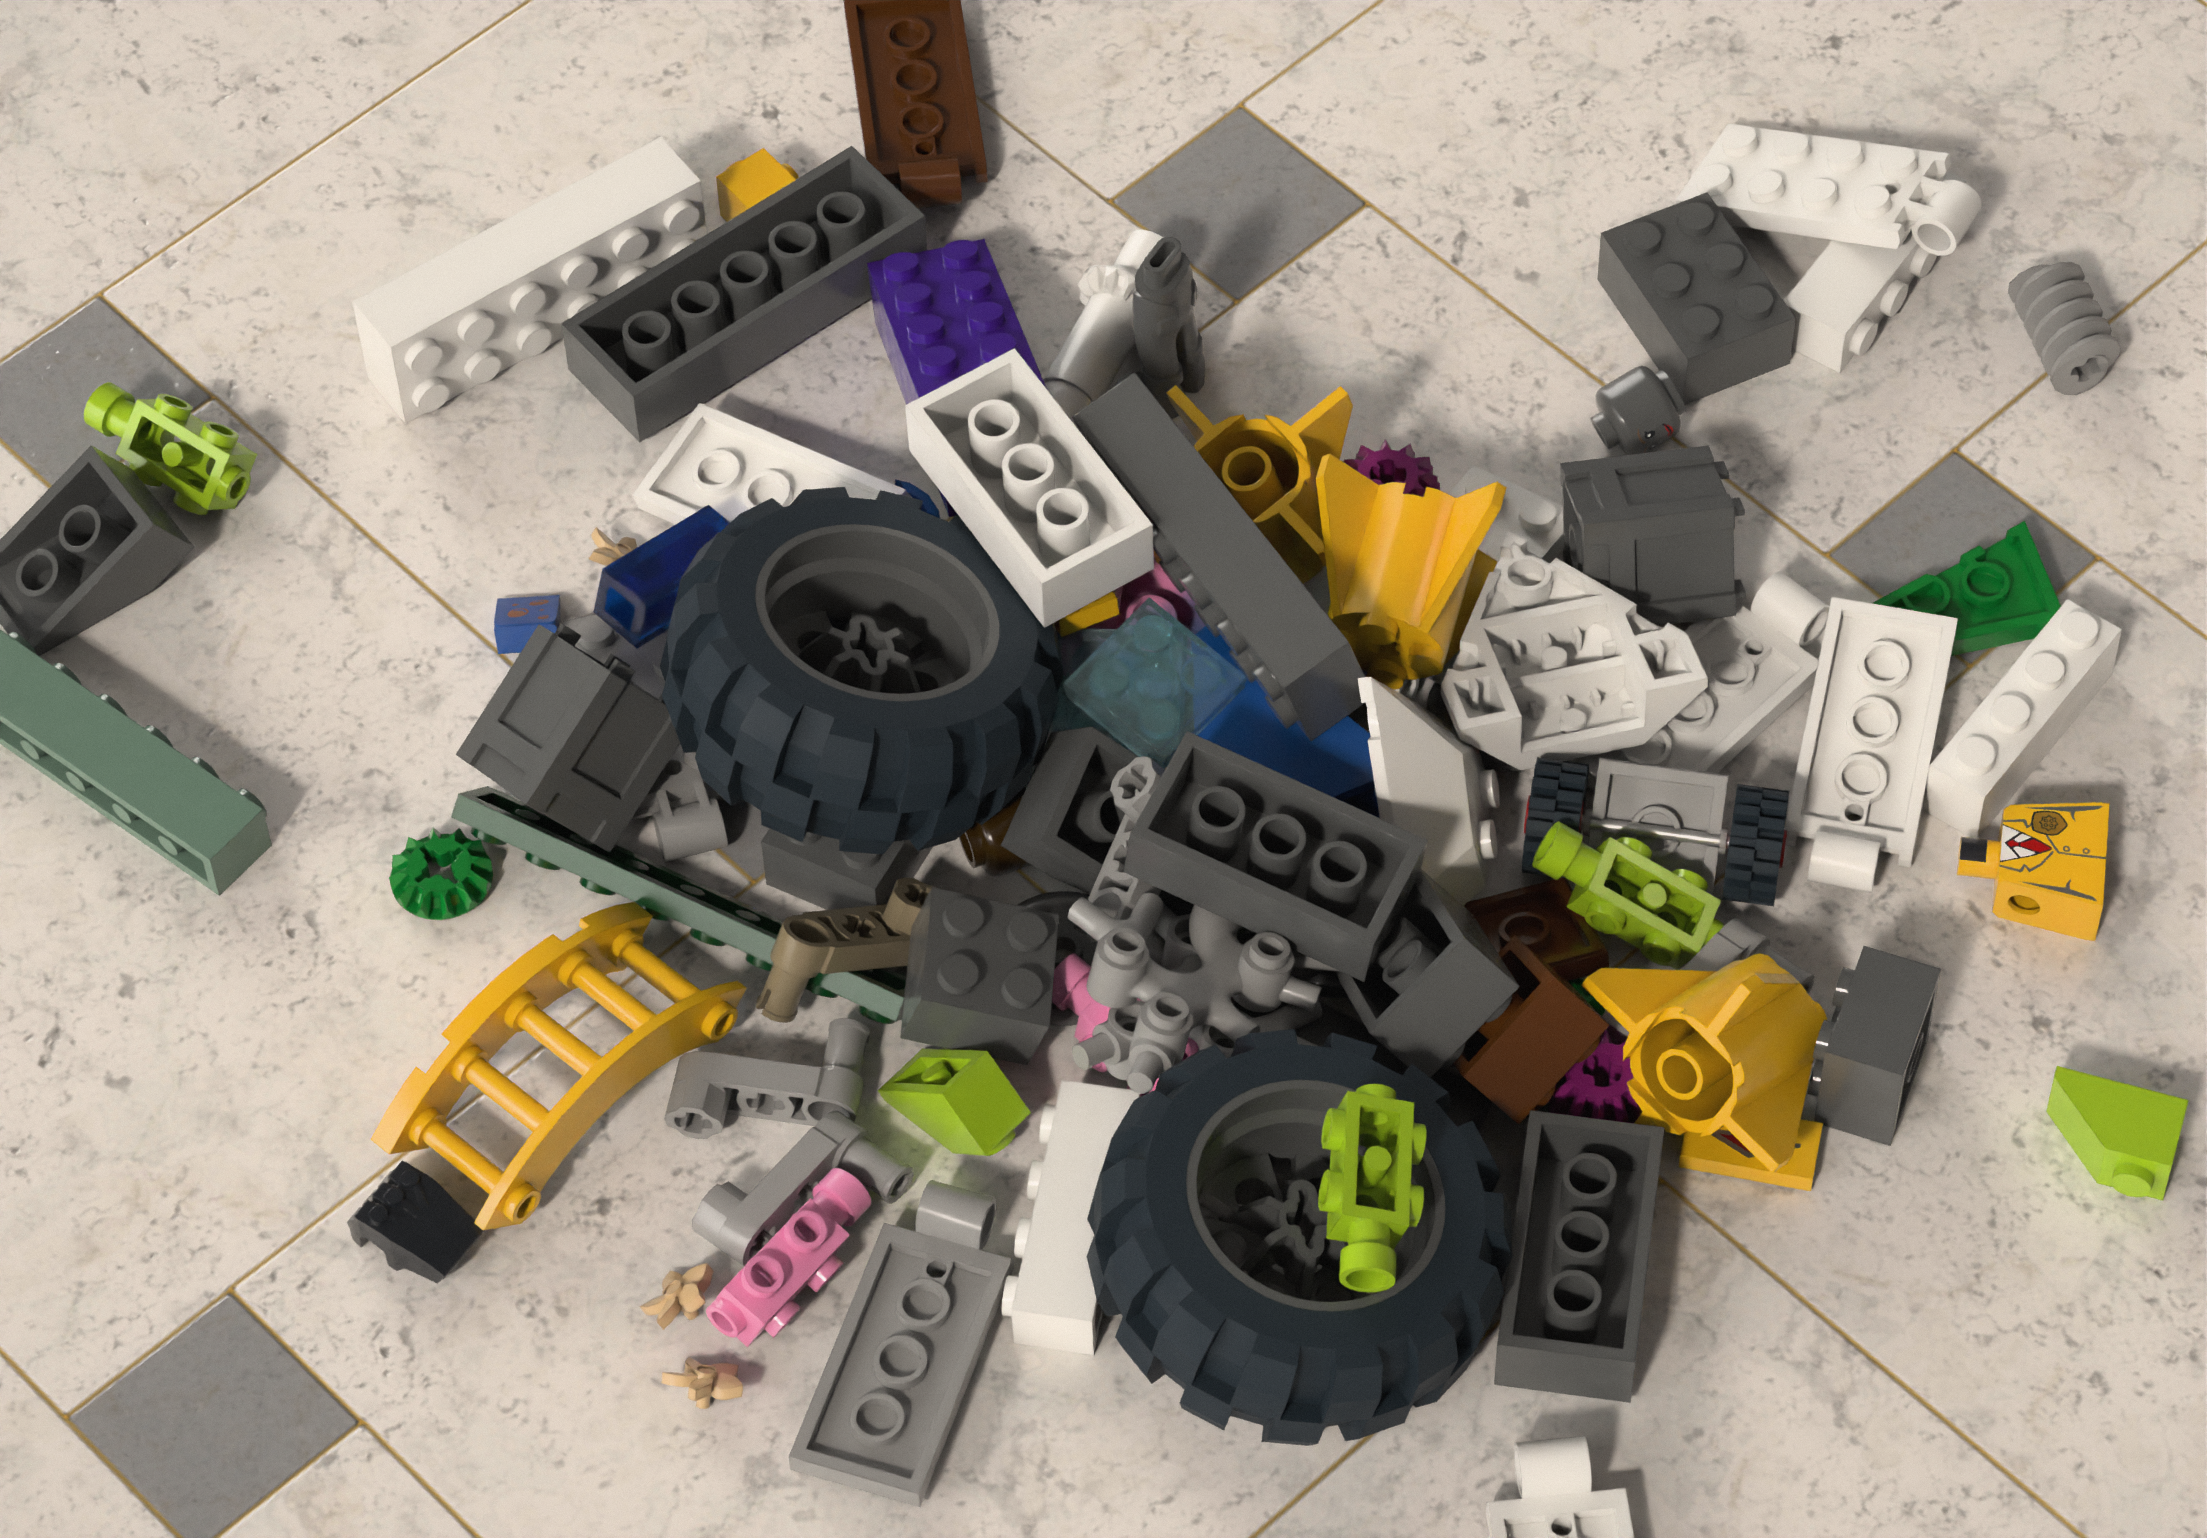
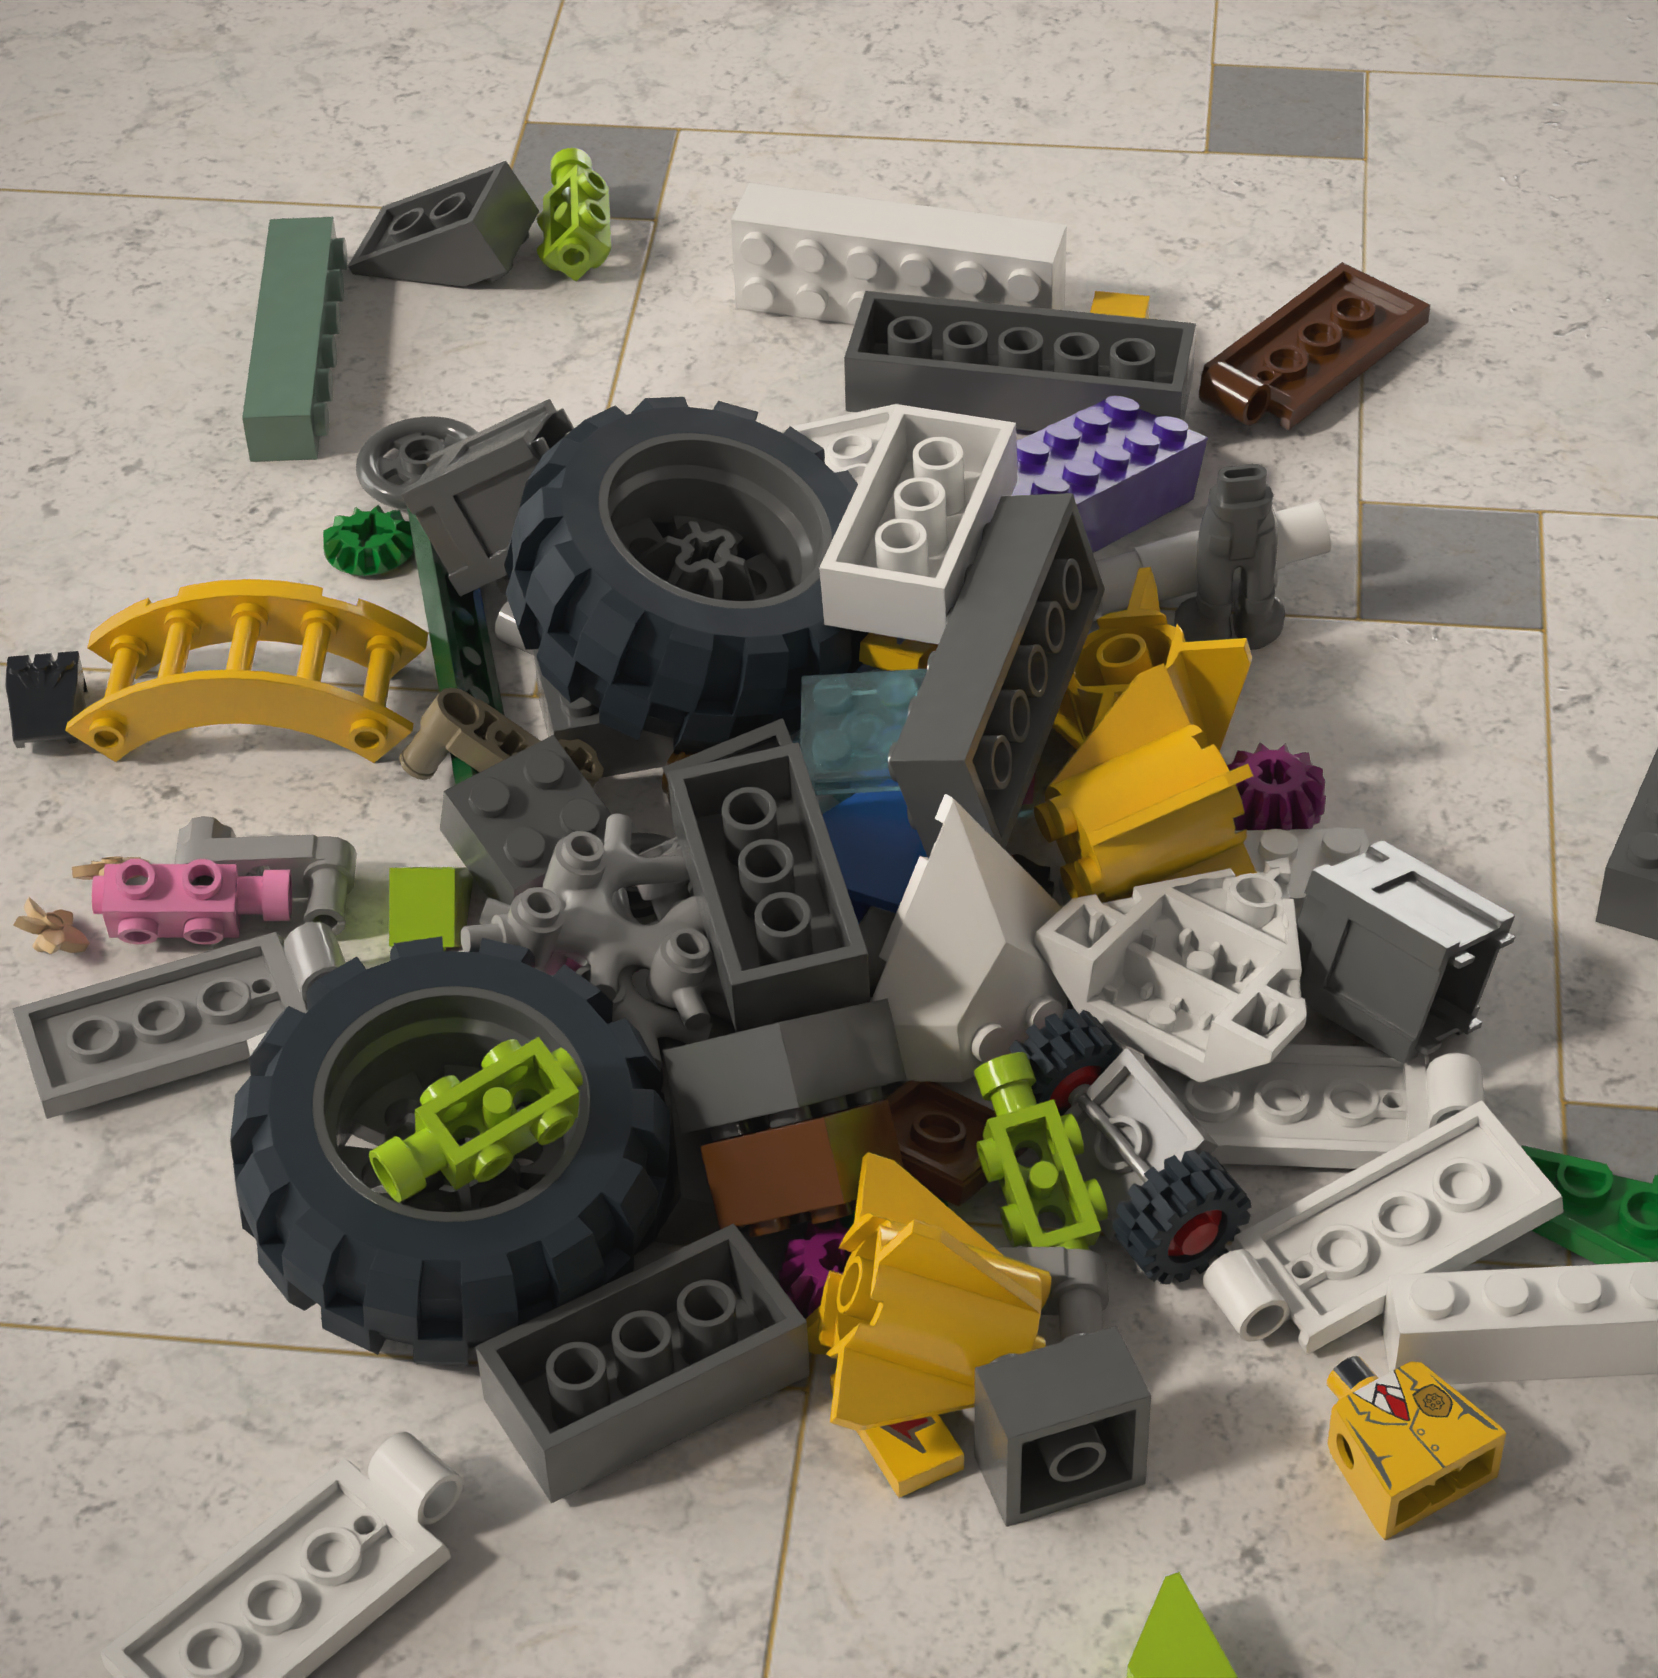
camera: 50 degrees right, 10 degrees down
(383, 754) = (416, 441): none -> dark grey plate
(723, 1084) = (317, 773): light grey beam -> none
(1638, 411) = (1538, 885): dark grey head -> none

